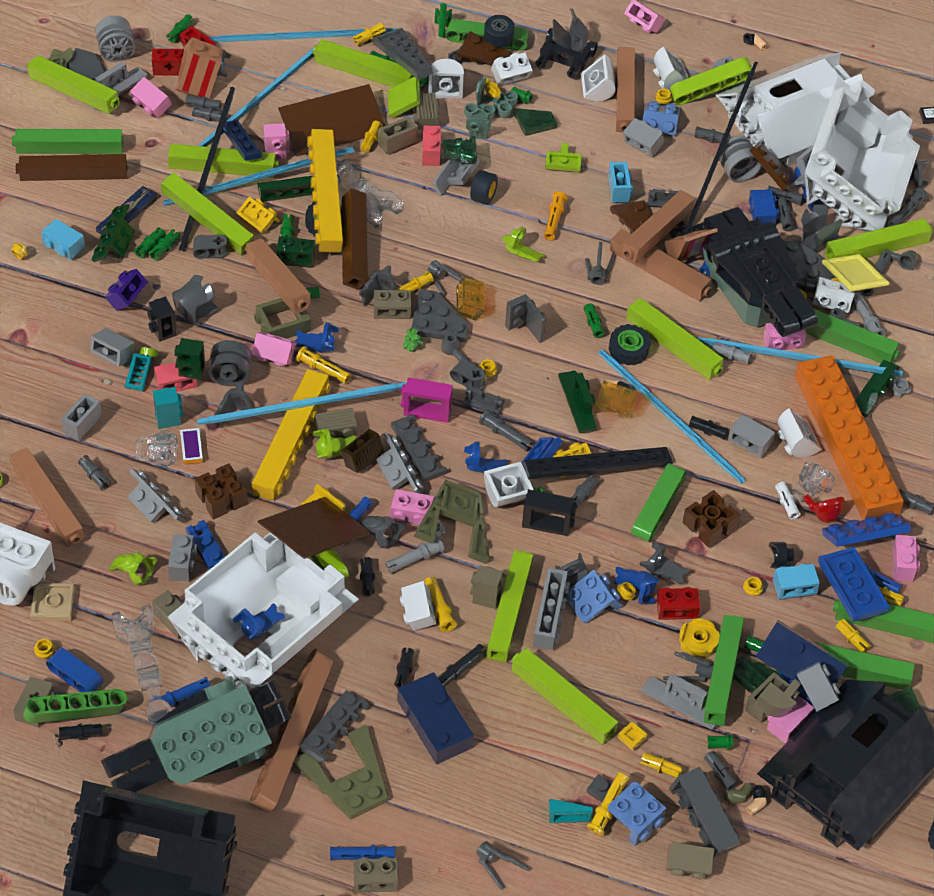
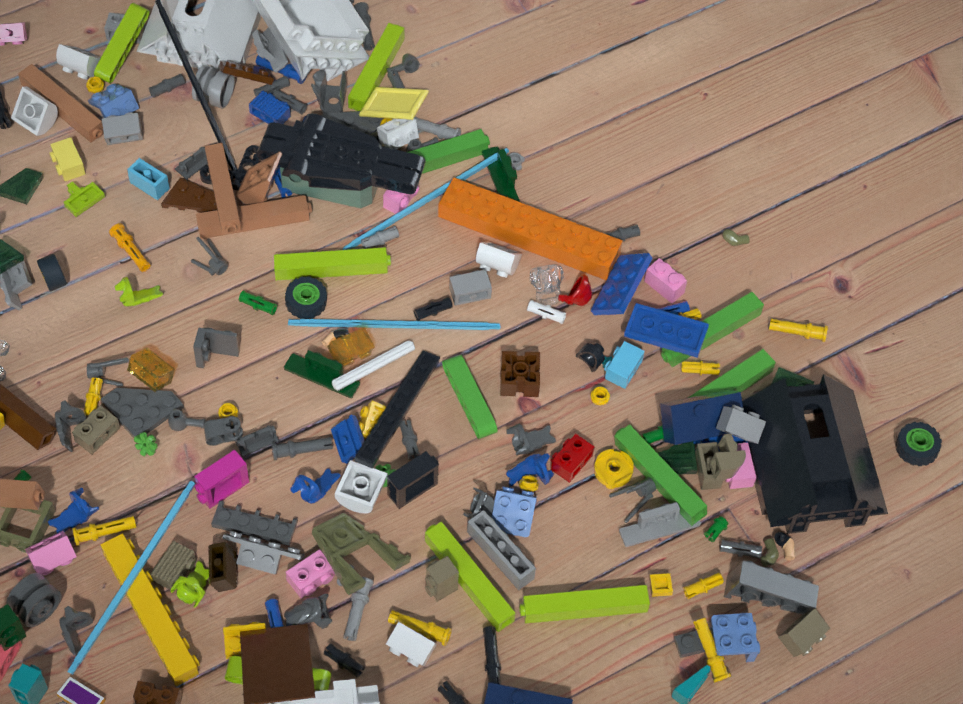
camera: 50 degrees left, 5 degrees up
(583, 127) = (67, 159): none -> light yellow brick
(619, 424) = (373, 365): none -> white axle

